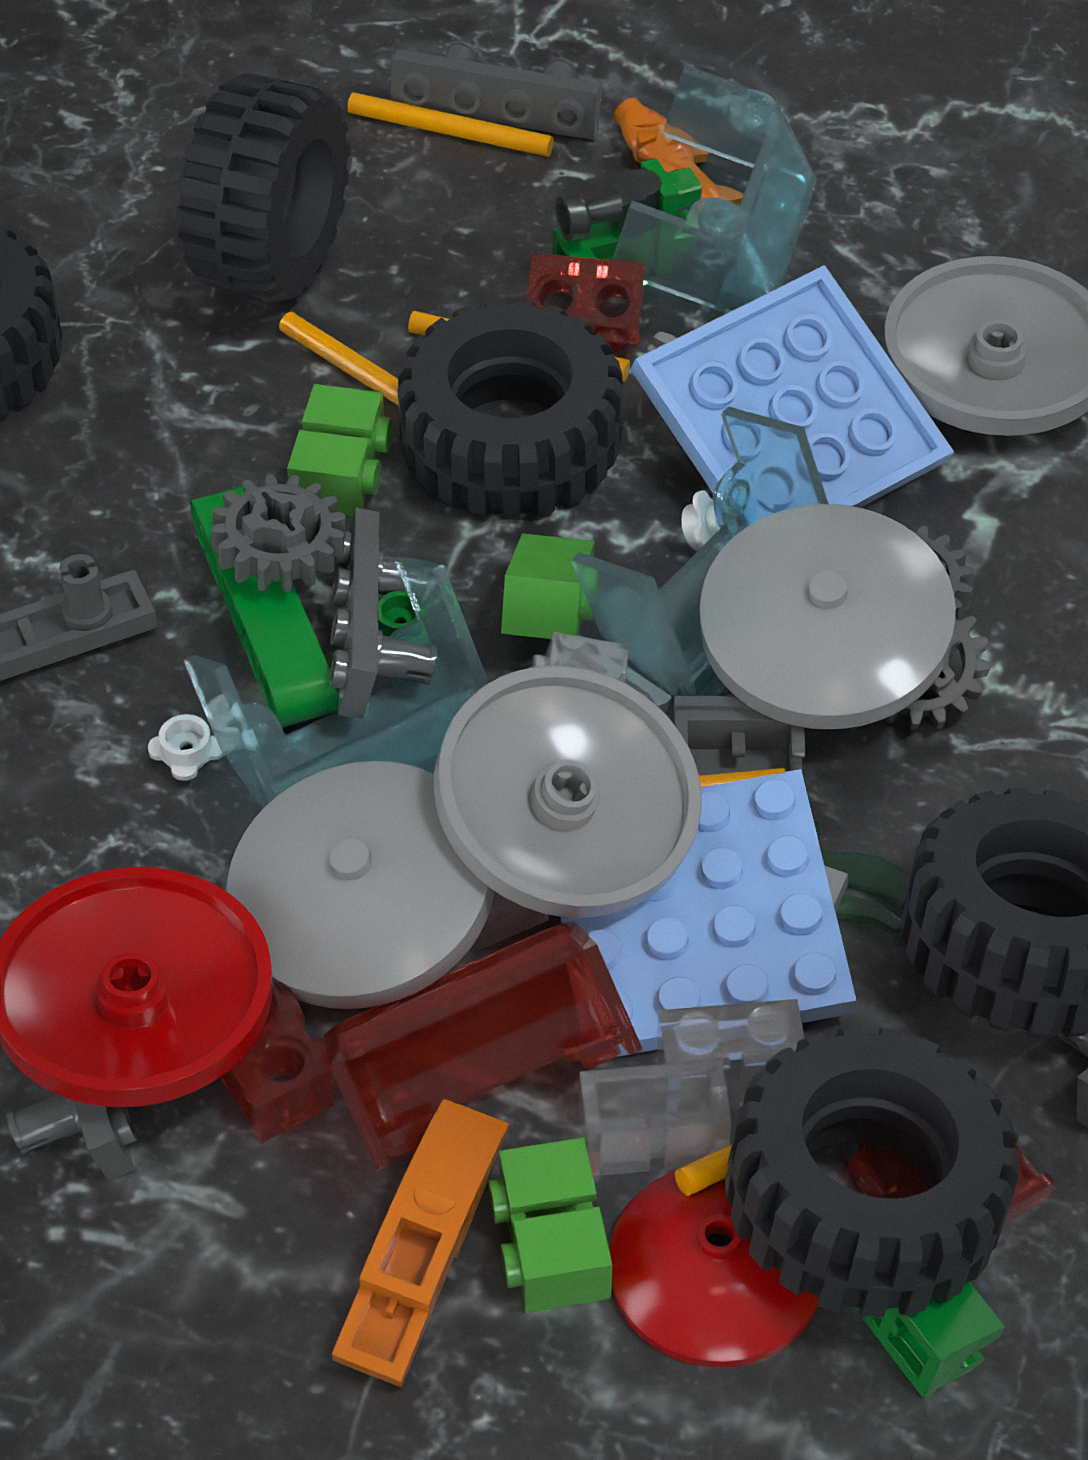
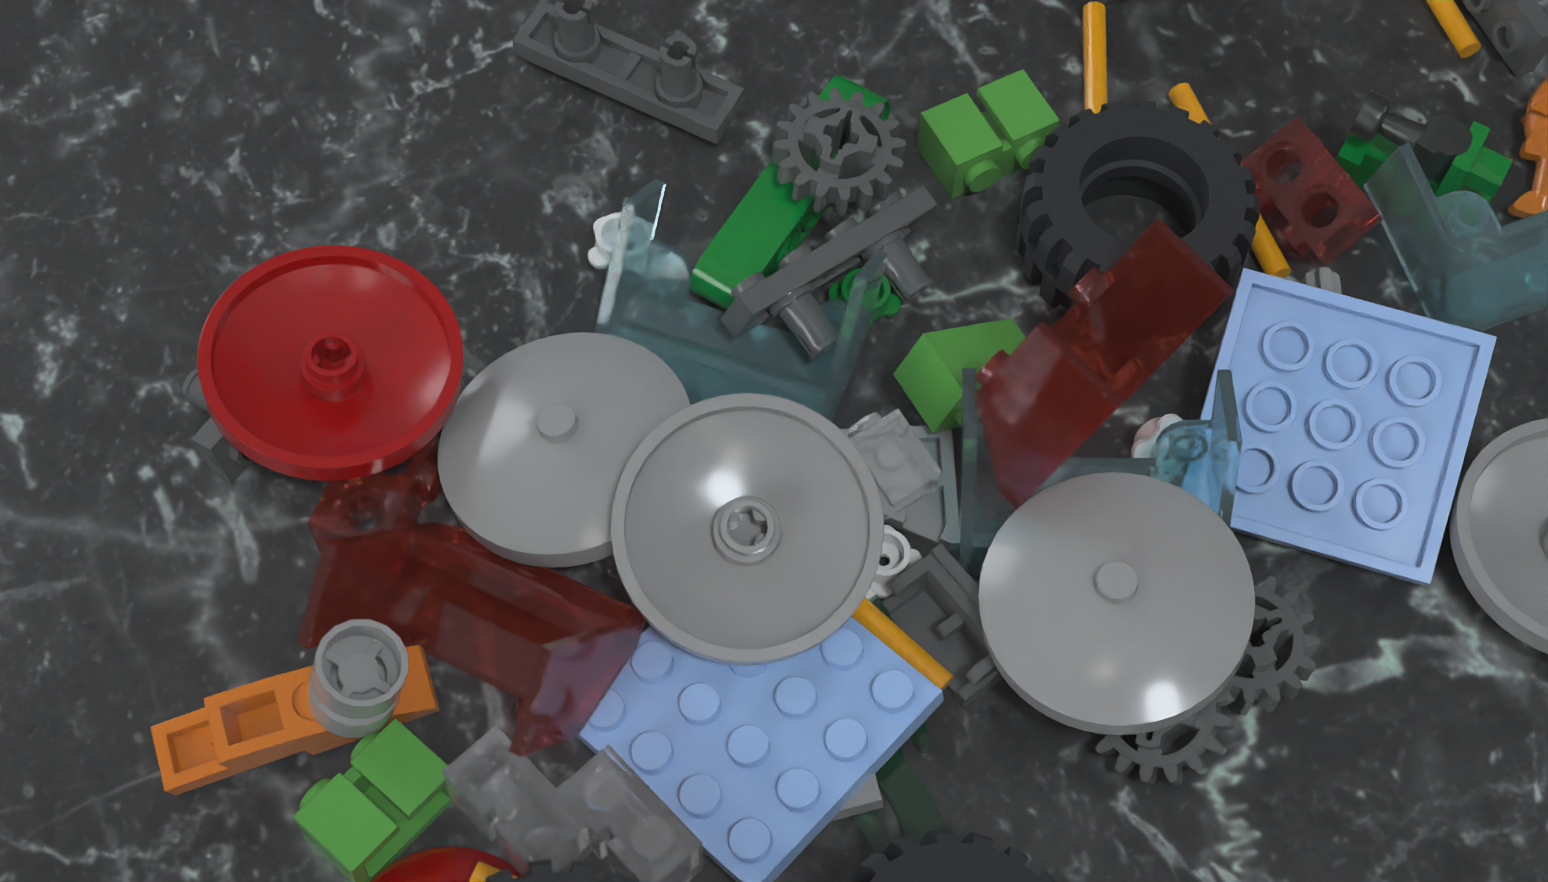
camera: 50 degrees right, 10 degrees up
(462, 1133) = (357, 678): none -> light grey wheel
(644, 501) = (1086, 365): none -> clear red windscreen

